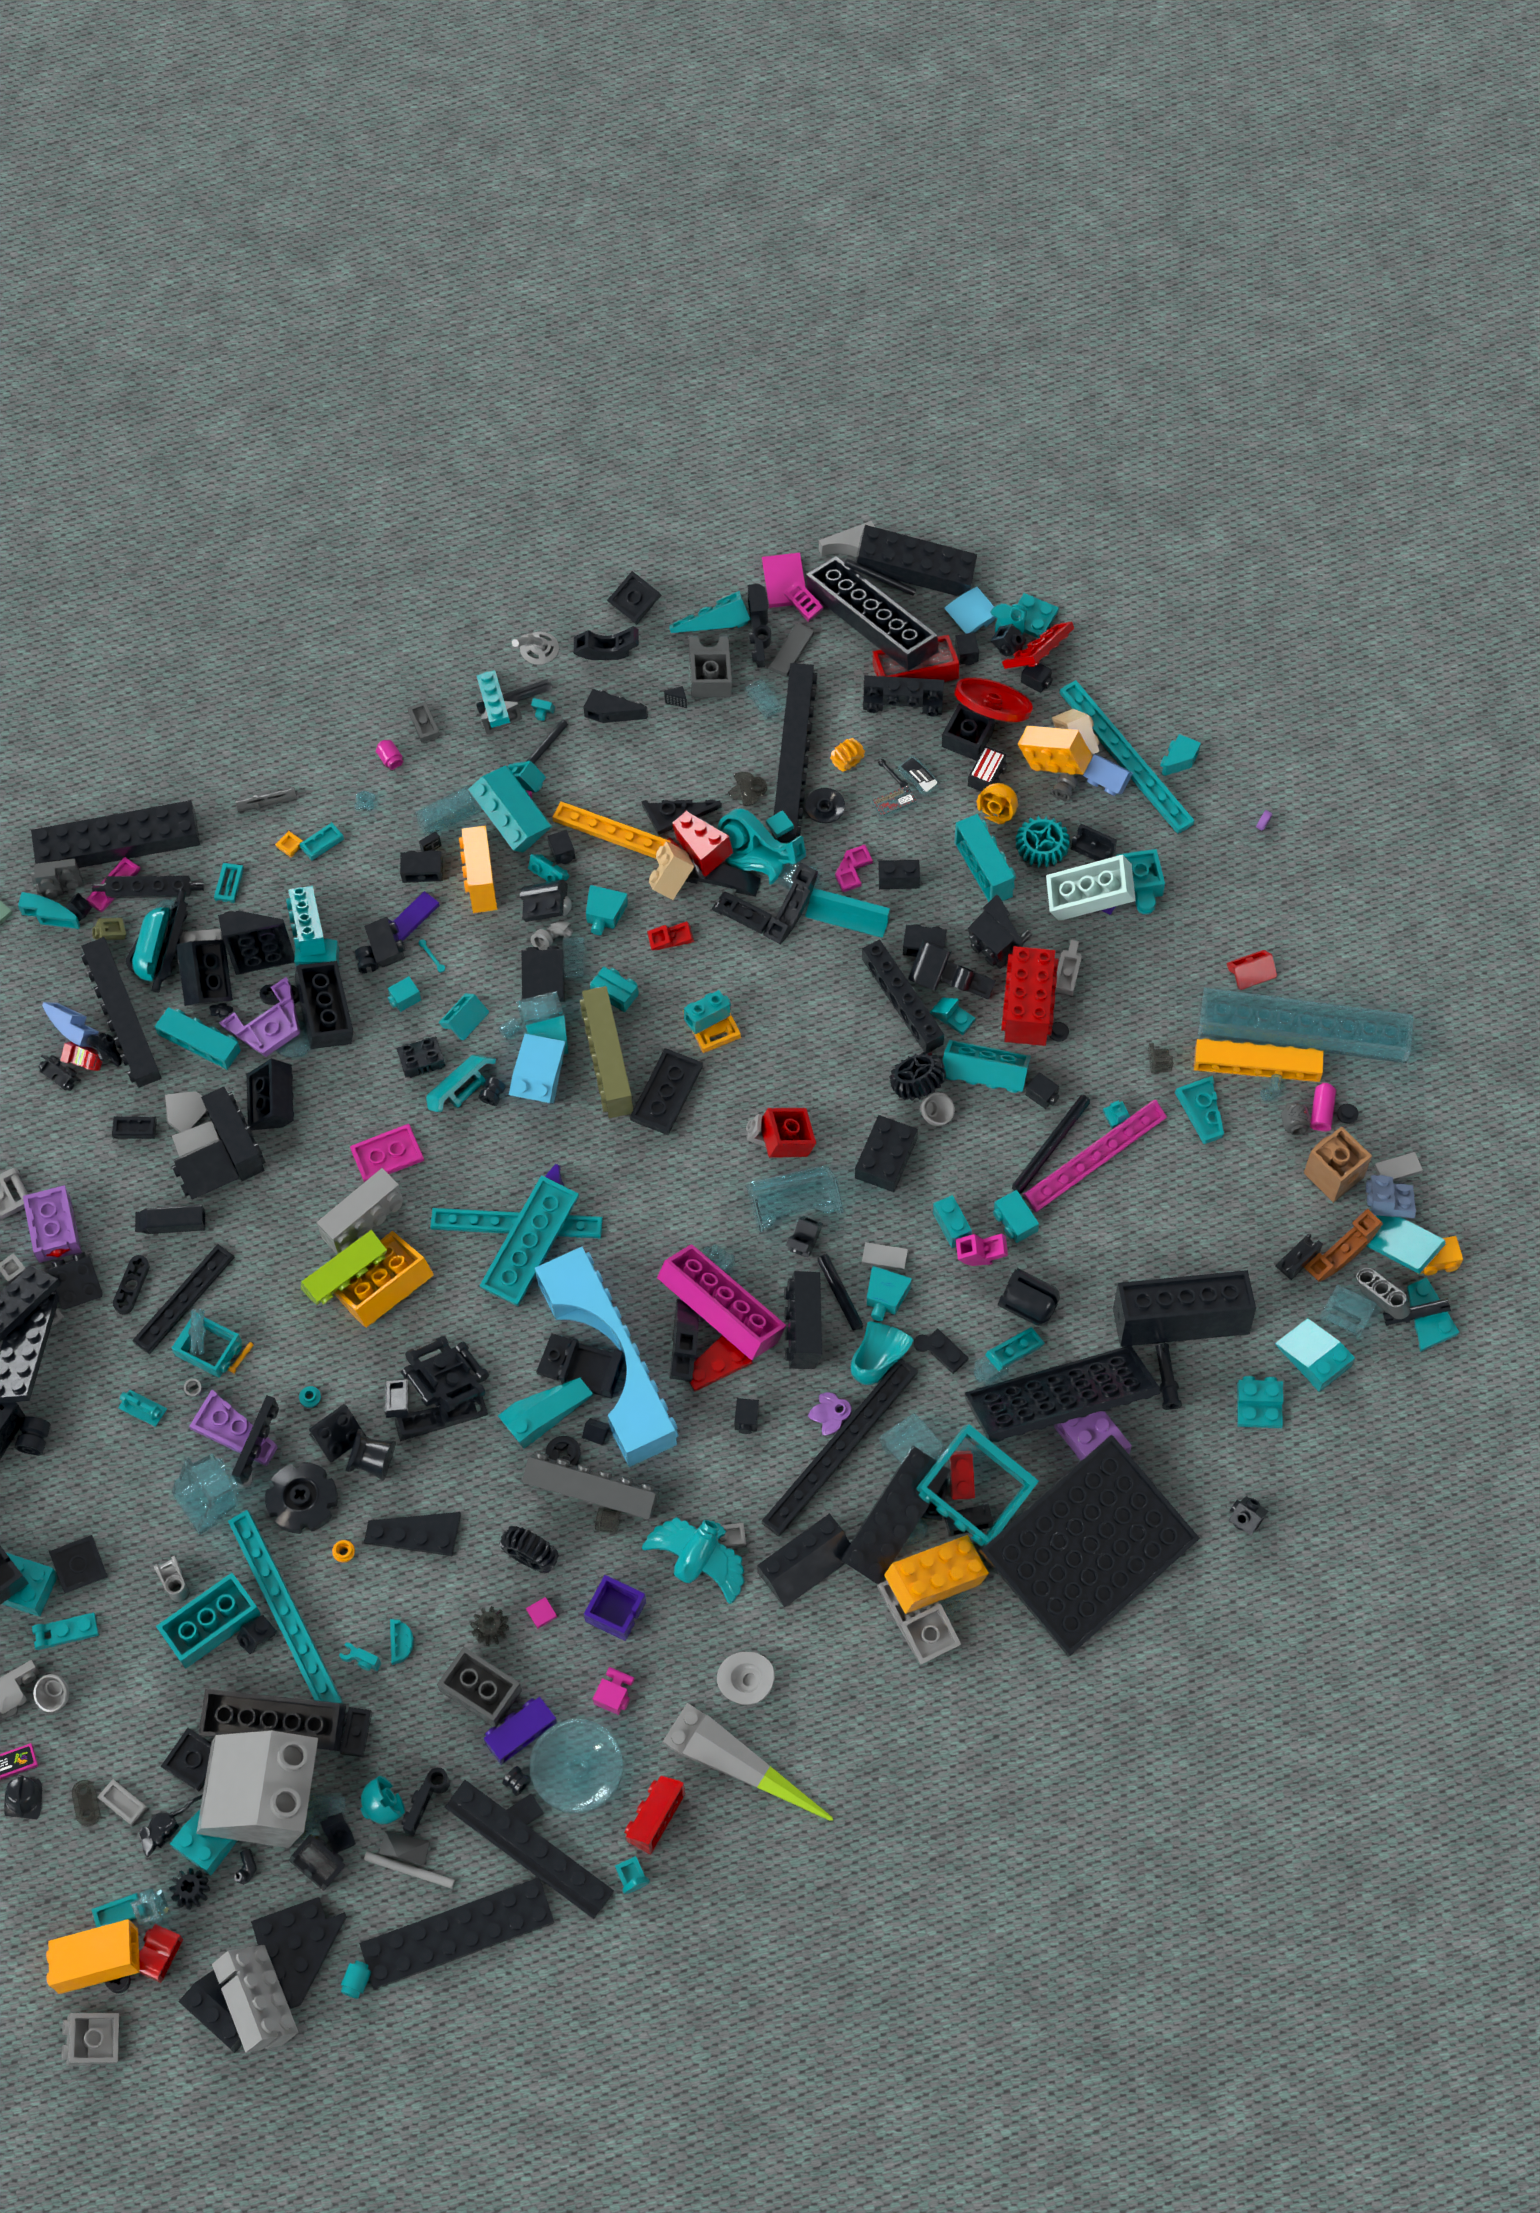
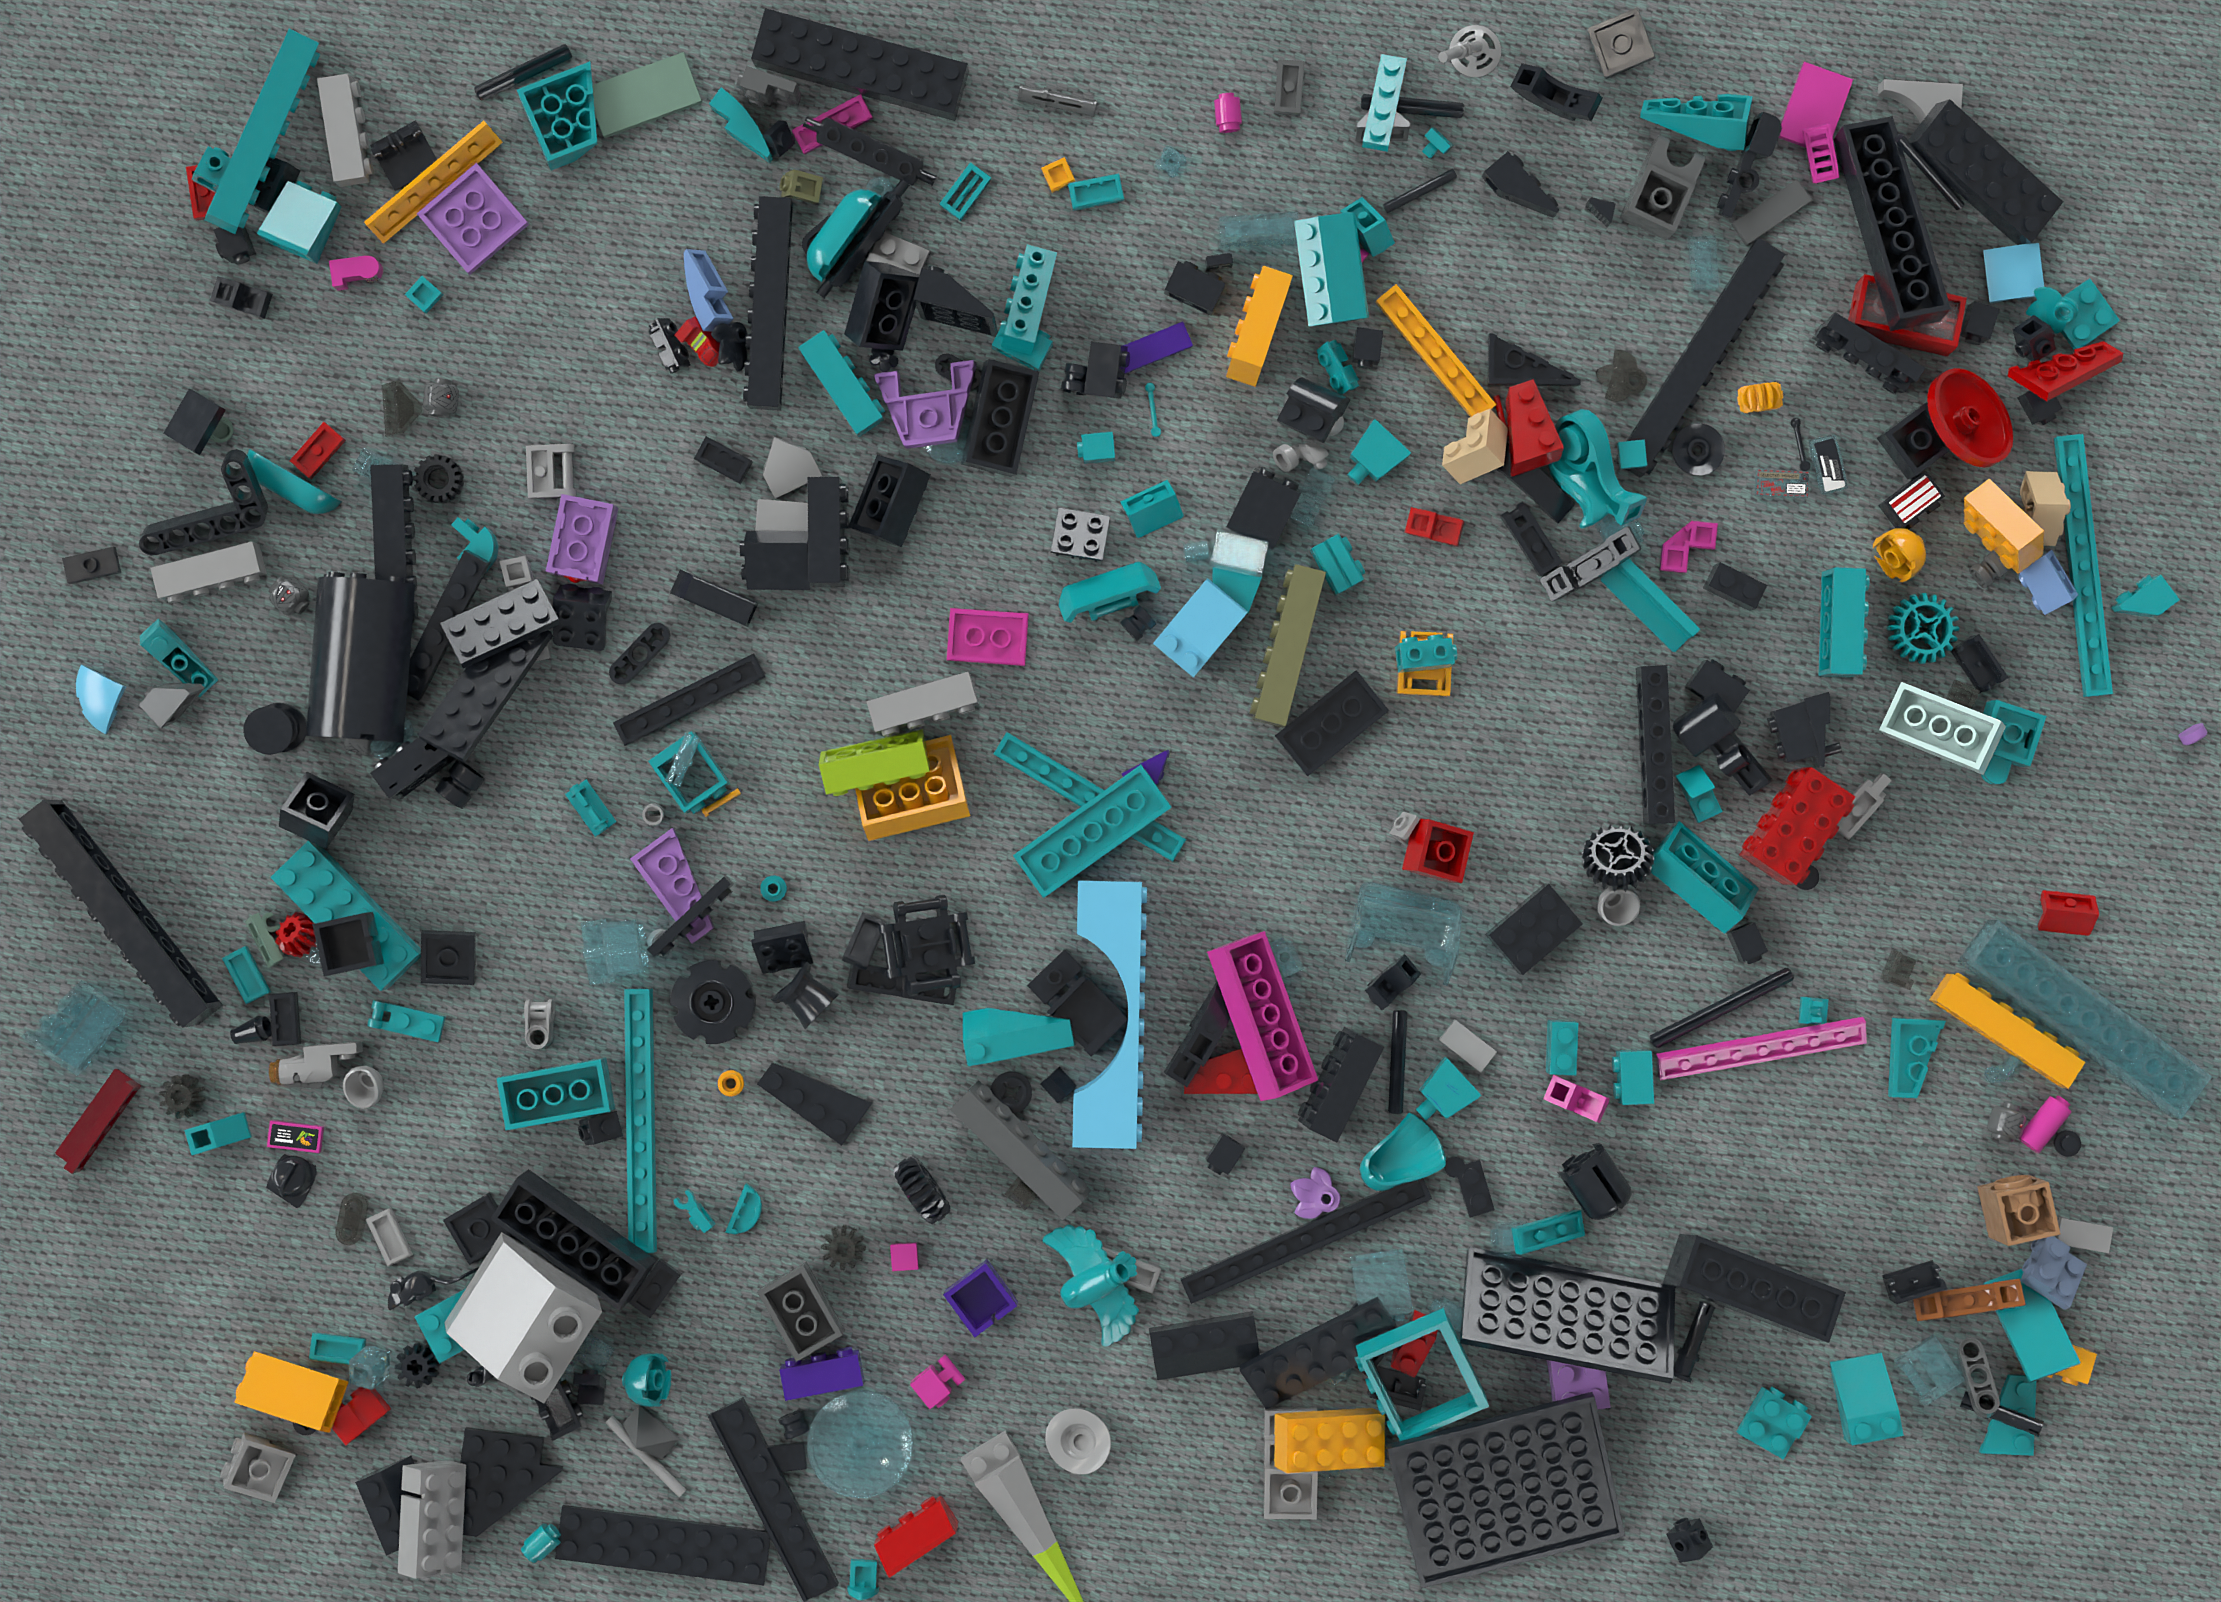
camera: 25 degrees right, 25 degrees up
(421, 1799) = (689, 1393): black plate -> none

